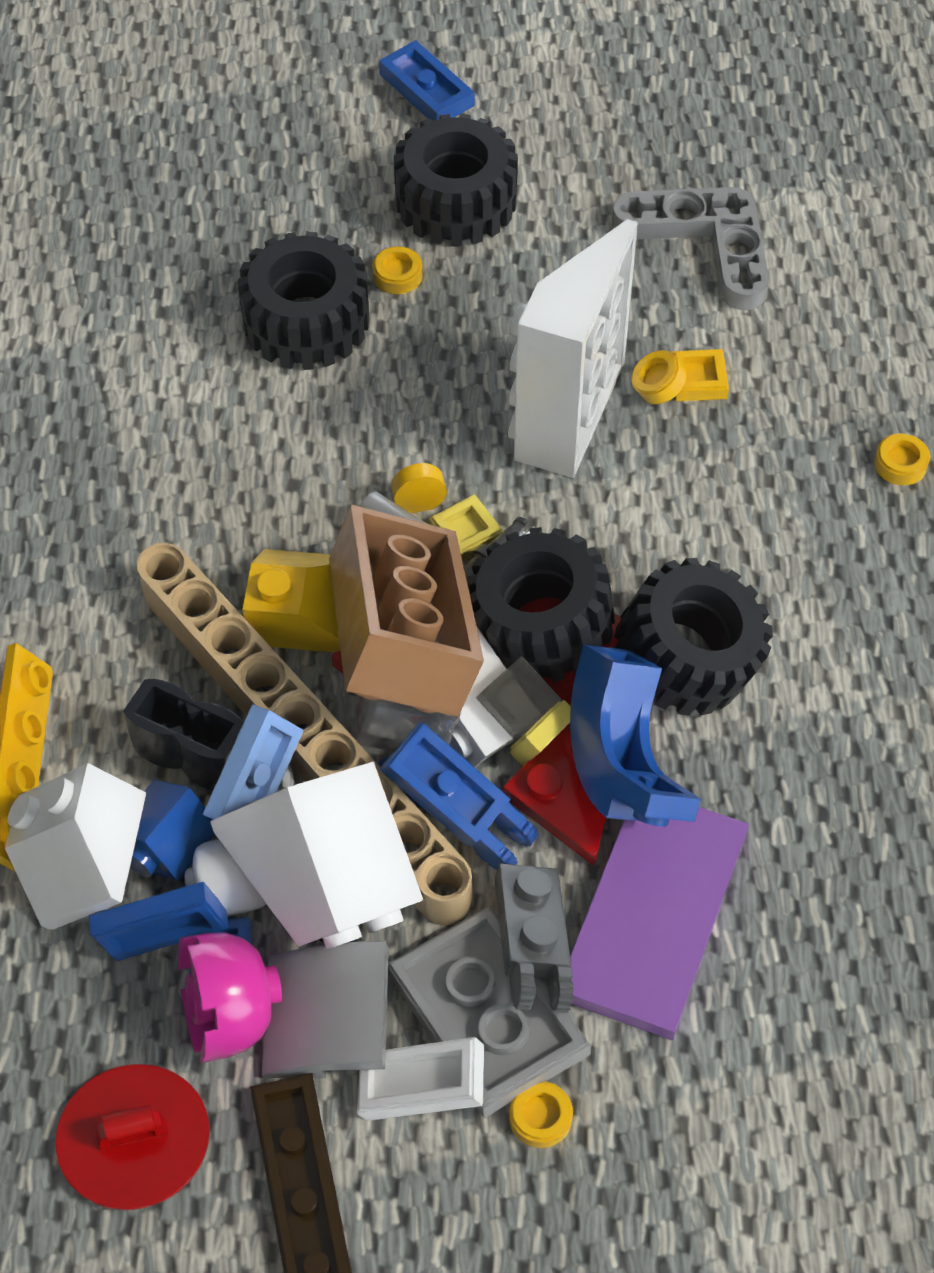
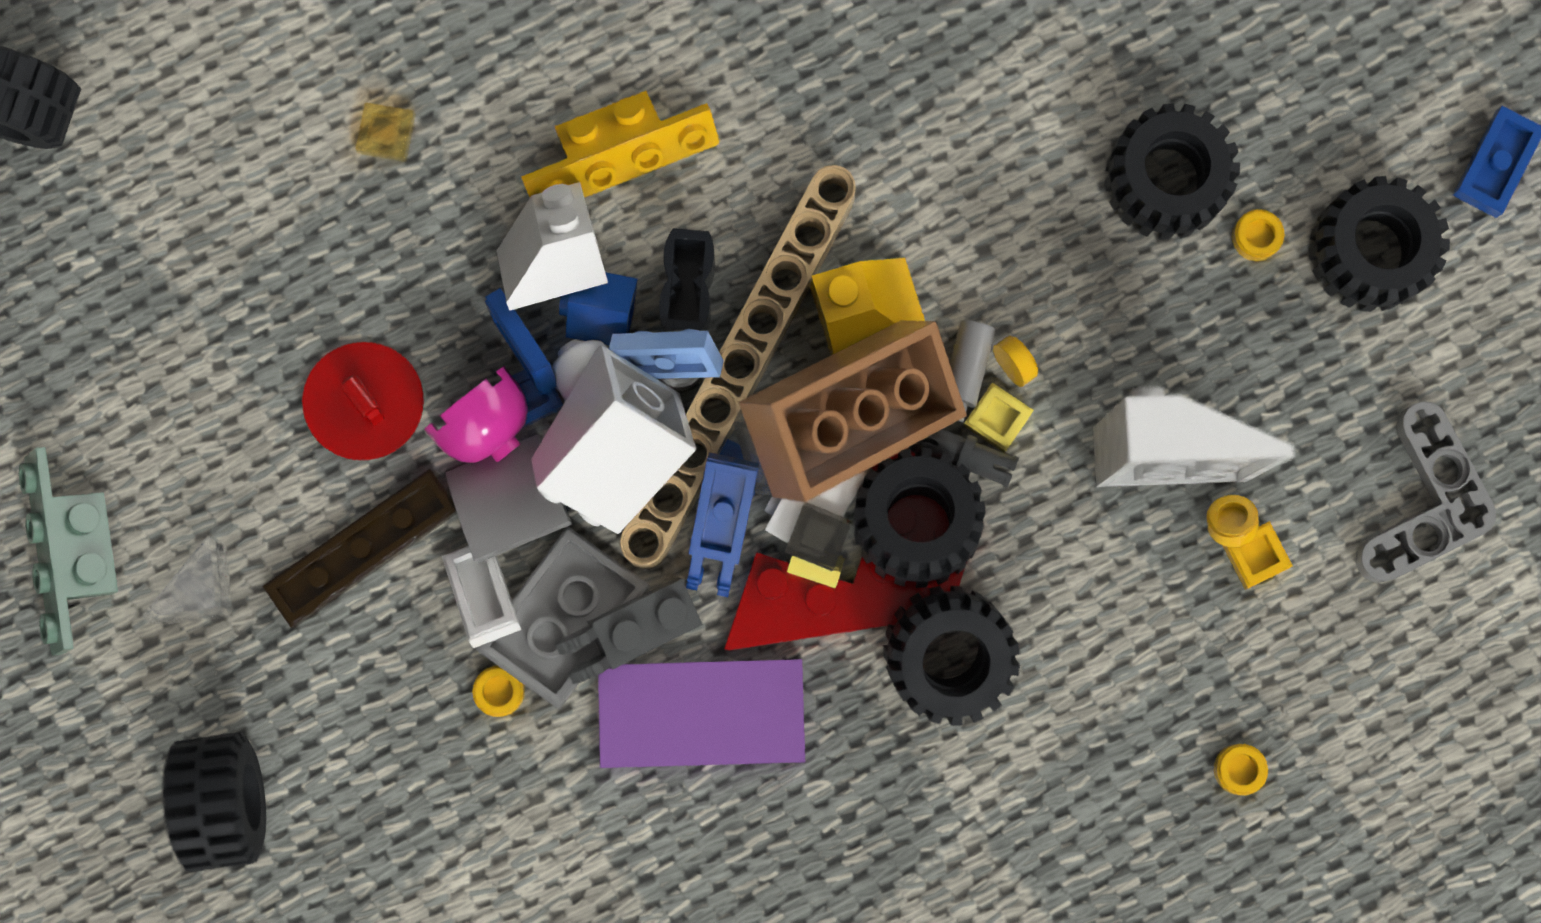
camera: 65 degrees right, 25 degrees up
(612, 739) = (810, 630): blue arch -> none

